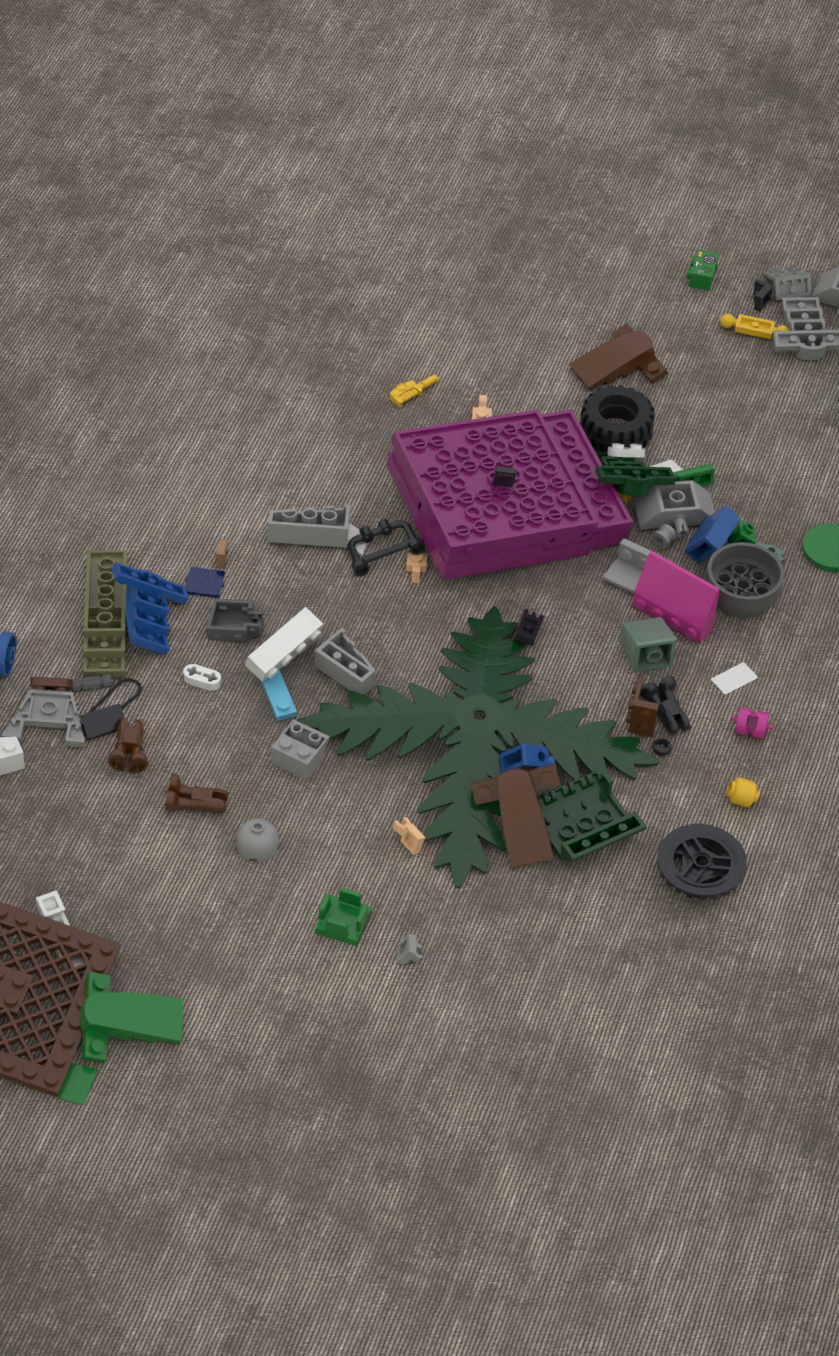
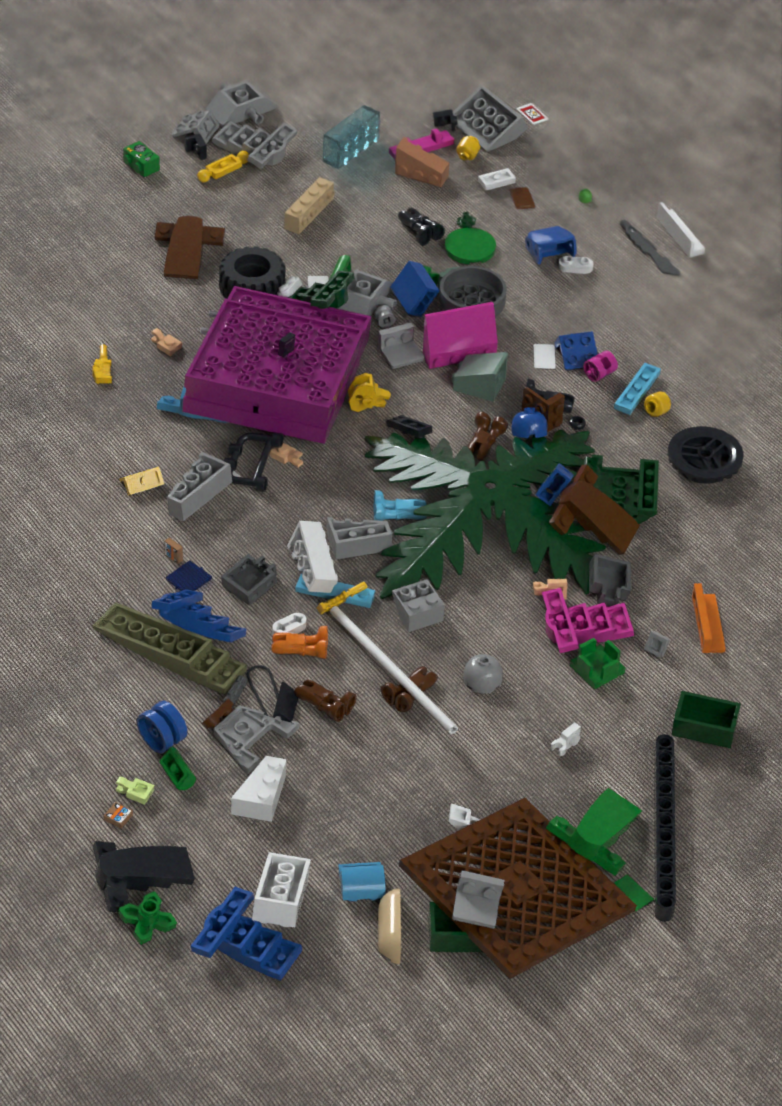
camera: 55 degrees left, 5 degrees down
(165, 1074) = (664, 828): none -> black beam
(183, 694) = (302, 644): none -> orange piece
(198, 772) = (393, 670): none -> white piece
(225, 940) = (568, 738): none -> white plate
(262, 692) = (340, 599): none -> yellow piece
(290, 489) = (143, 480): none -> yellow panel
(332, 1032) = (706, 719): none -> dark green piece
(384, 878) = (581, 623): none -> dark pink slope
(418, 673) = (398, 509): none -> medium azure piece
(458, 871) = (609, 579): none -> dark grey piece
(477, 974) = (708, 621): none -> orange panel
(539, 576) = (366, 394): none -> yellow hinge
(563, 689) = (481, 438): none -> reddish brown piece
(610, 709) = (529, 423): none -> blue cylinder
(752, 767) = (637, 388): none -> medium azure plate
(759, 694) = (576, 349): none -> blue bracket
(760, 408) = (309, 205): none -> tan brick
(822, 495) = (422, 224): none -> black piece

